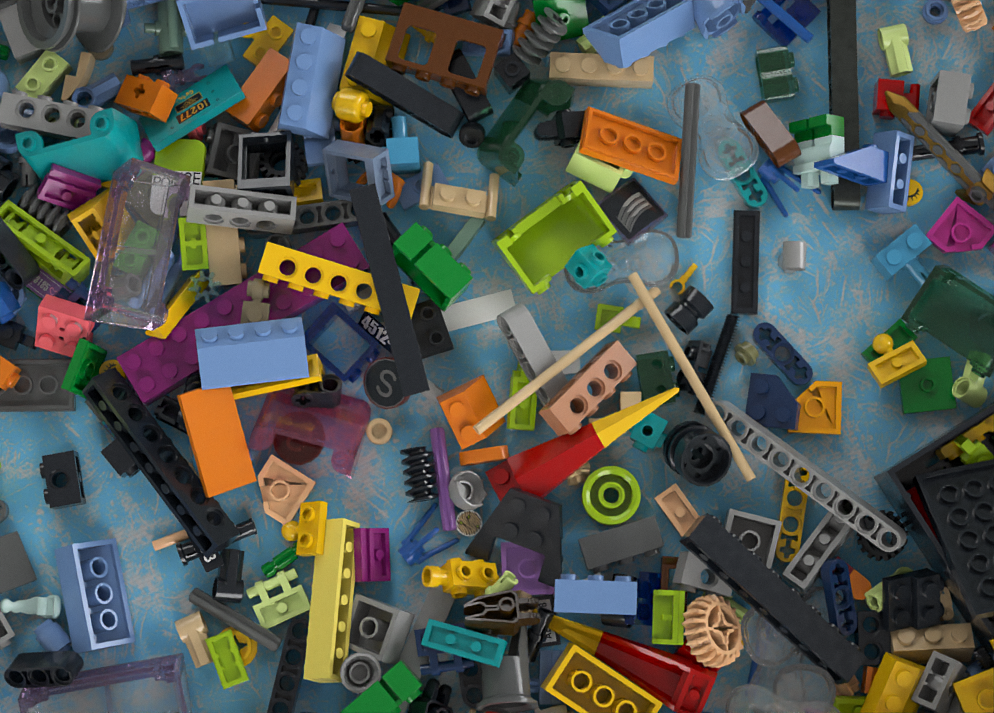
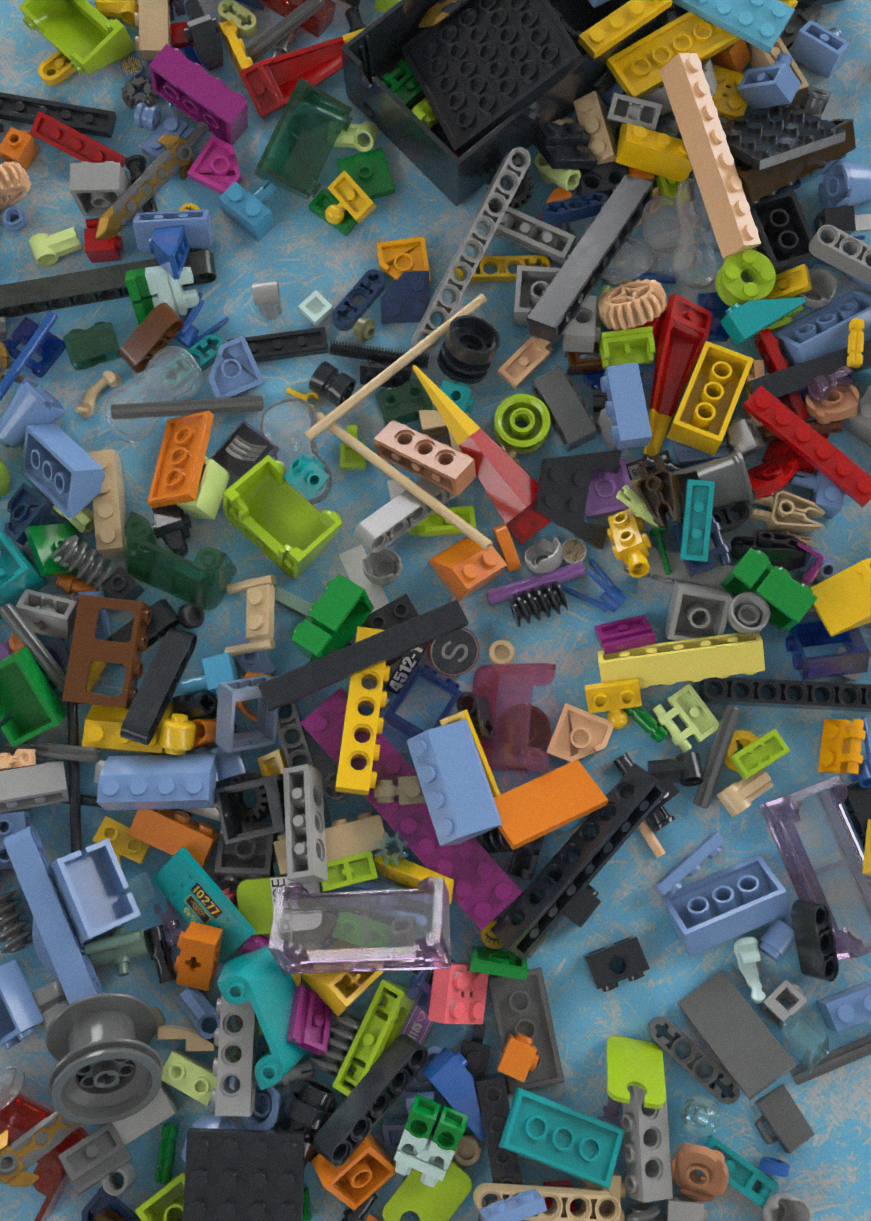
camera: 100 degrees left, 5 degrees down
(138, 569) = (690, 864): none -> medium blue plate
(449, 608) = (657, 533): none -> green pin
(484, 328) = (382, 567): none -> light grey hair
(711, 61) = (87, 406): none -> tan piece
(722, 213) = (234, 369): none -> medium blue plate
(779, 307) = (315, 308): none -> light aqua plate

